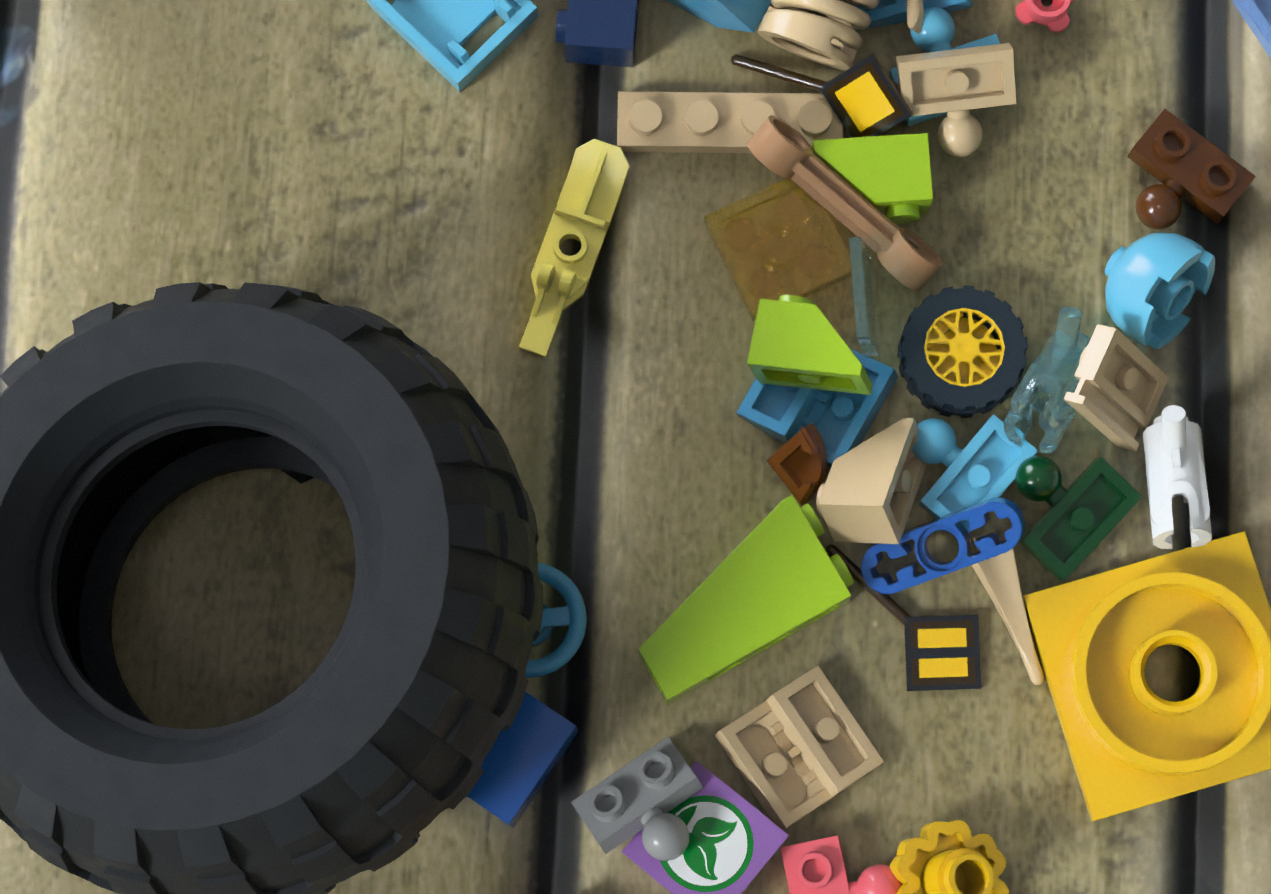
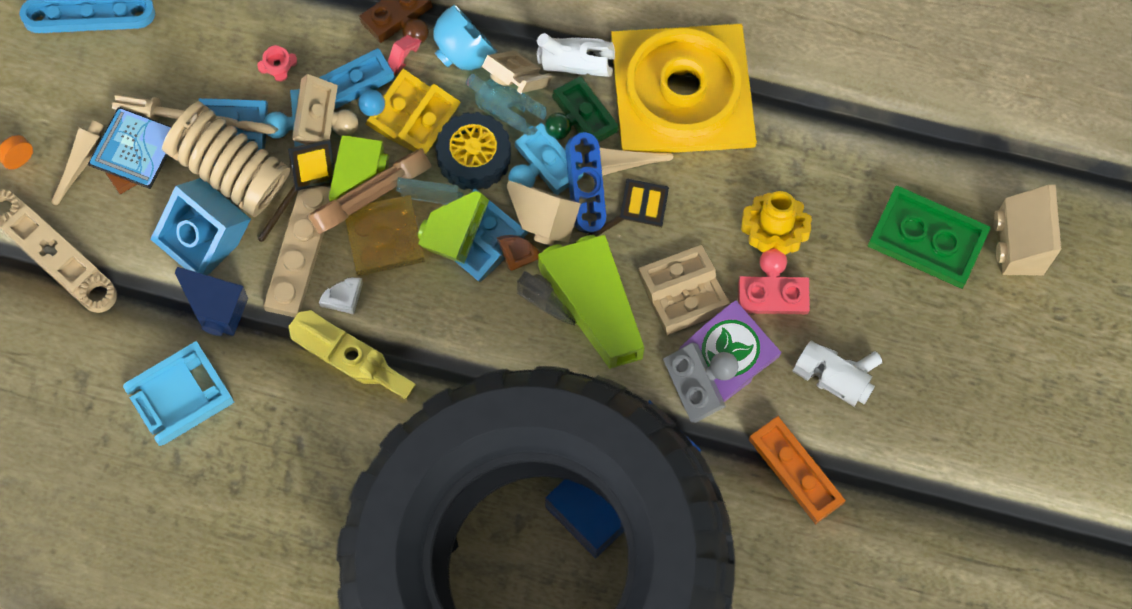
camera: 85 degrees left, 10 degrees down
(667, 208) = (342, 295): none -> white tile
(737, 511) = (539, 292): none -> clear smoke plate
(1011, 239) = (413, 112): none -> yellow slope
(1042, 135) = (360, 80): none -> dark azure plate
(1114, 190) = (400, 50): none -> coral tile

